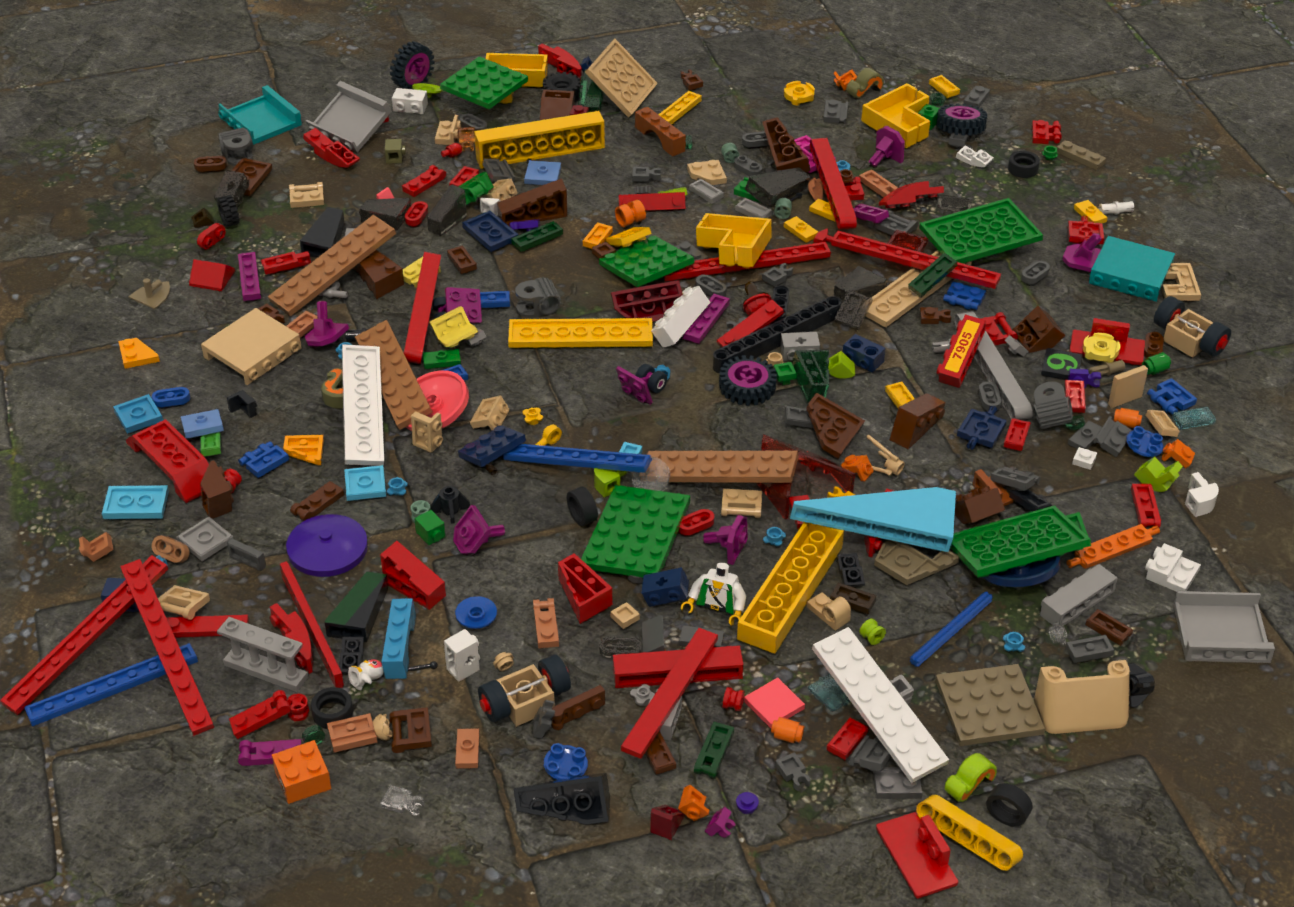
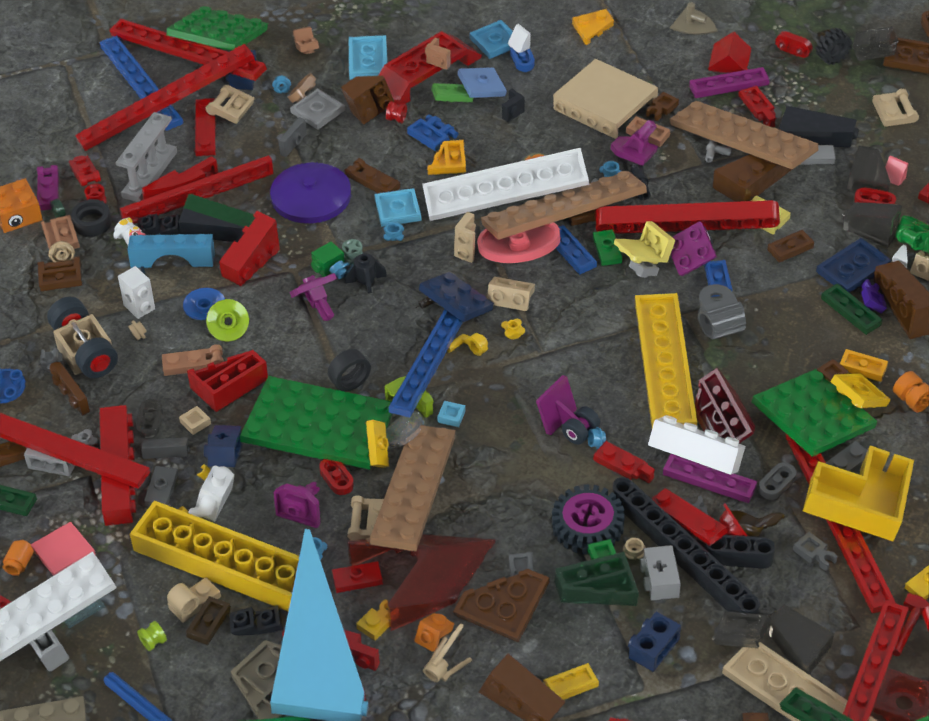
camera: 90 degrees right, 5 degrees up
(56, 611) = (217, 28): none -> green plate
(156, 389) = (519, 39): none -> white slope
(179, 432) = (437, 55): none -> nougat bracket
(447, 518) = (339, 269): none -> dark azure plate
(467, 748) = (30, 316): nougat plate -> none
(502, 593) = (220, 312): none -> lime dish
(668, 486) = (377, 444): none -> yellow plate
(687, 362) = (623, 462): none -> red hinge
(733, 699) = (66, 511): red wheel -> none
(841, 366) = (626, 617): lime brick -> none

